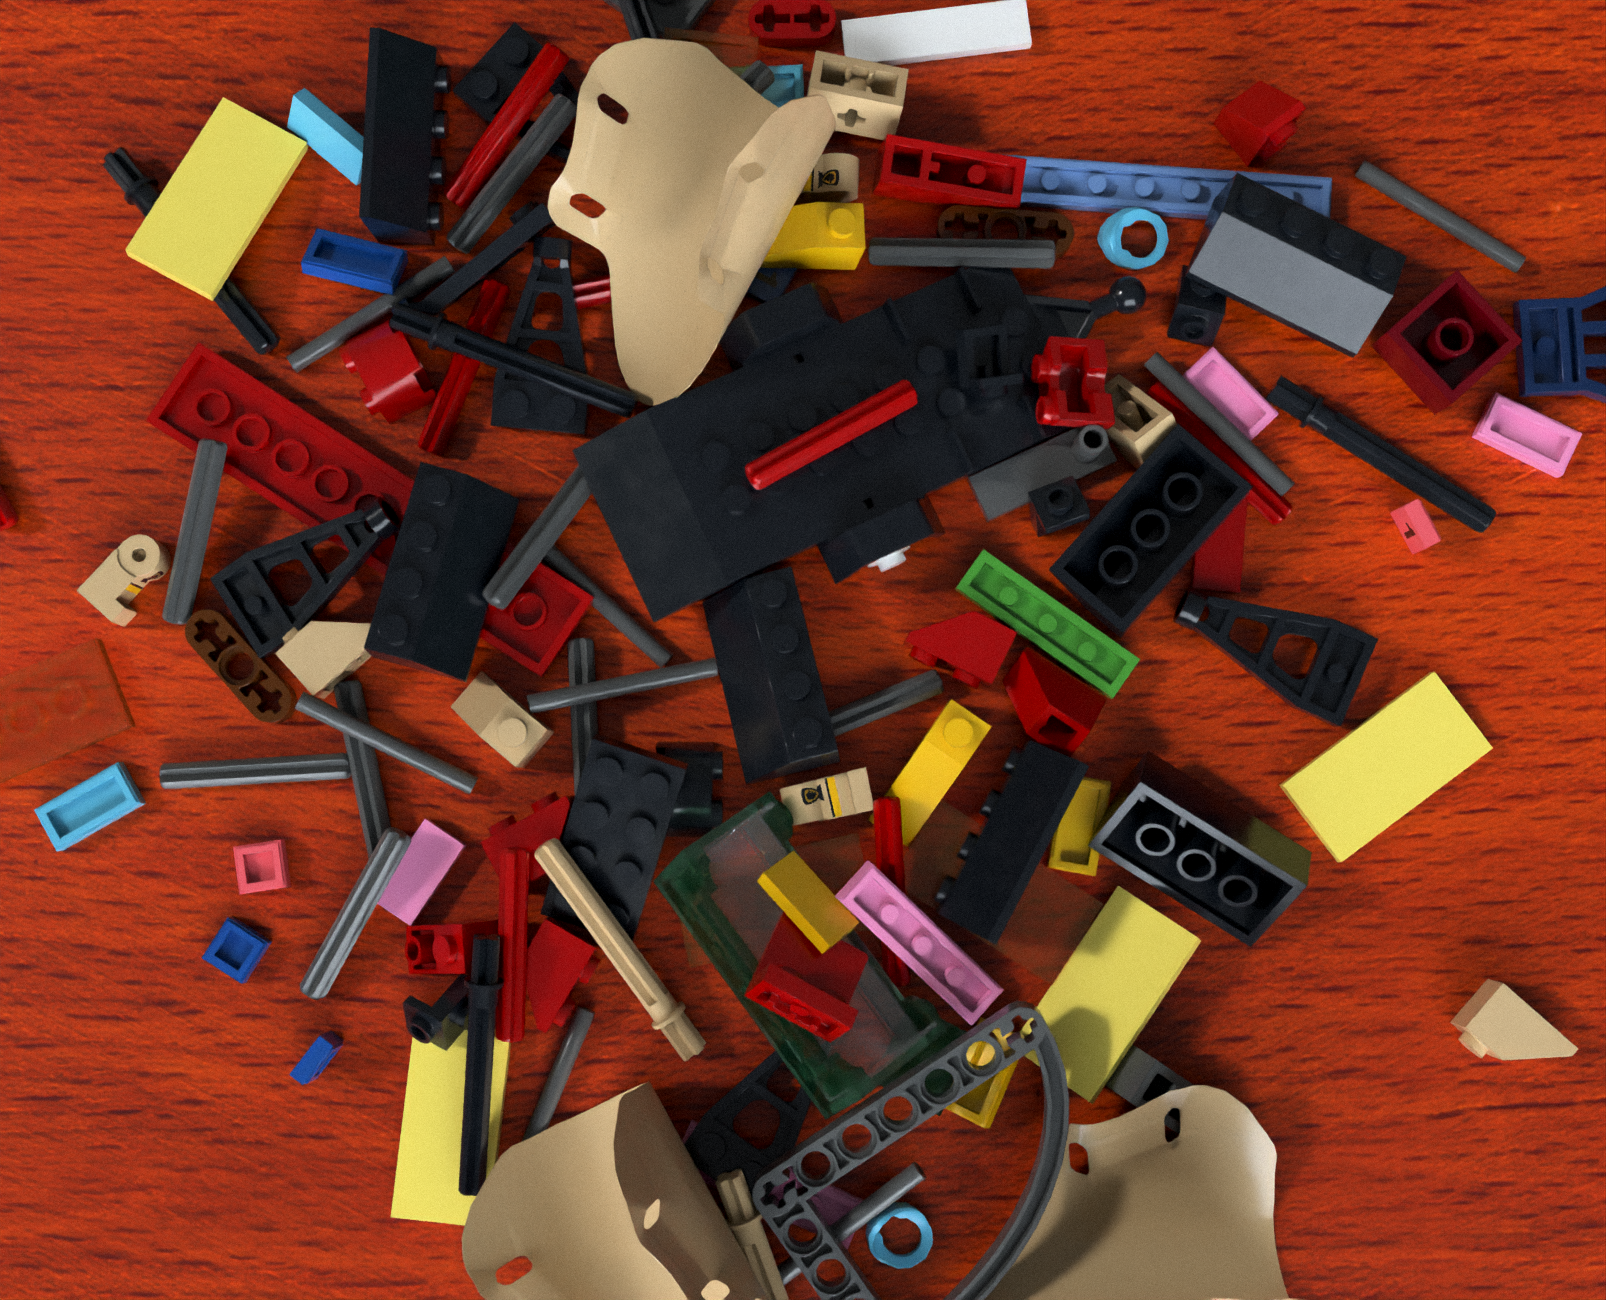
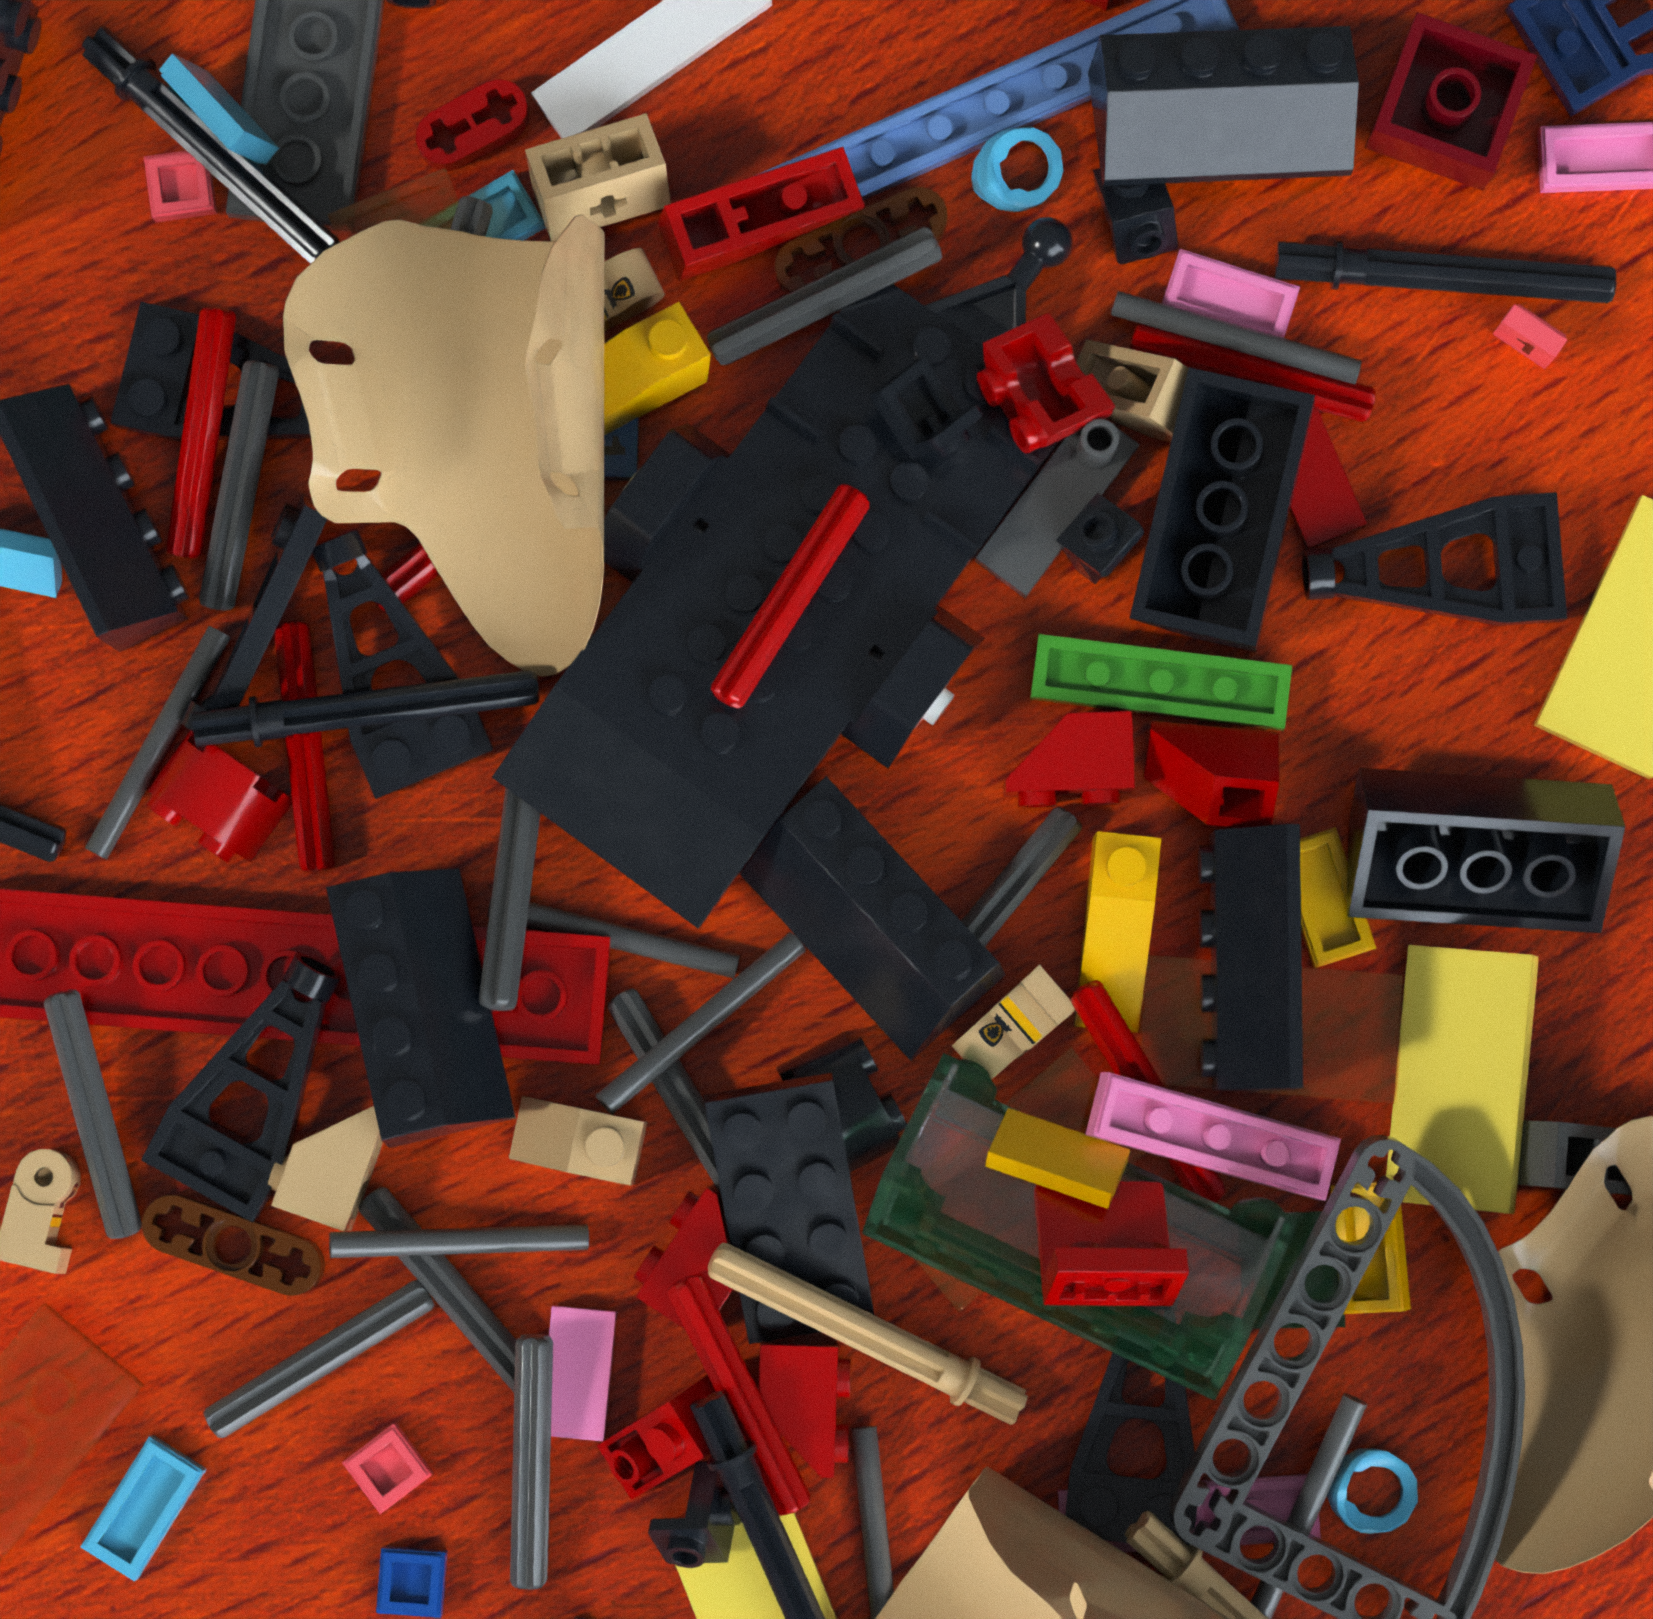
camera: 25 degrees left, 0 degrees up
(354, 261) = (105, 690): blue tile -> none

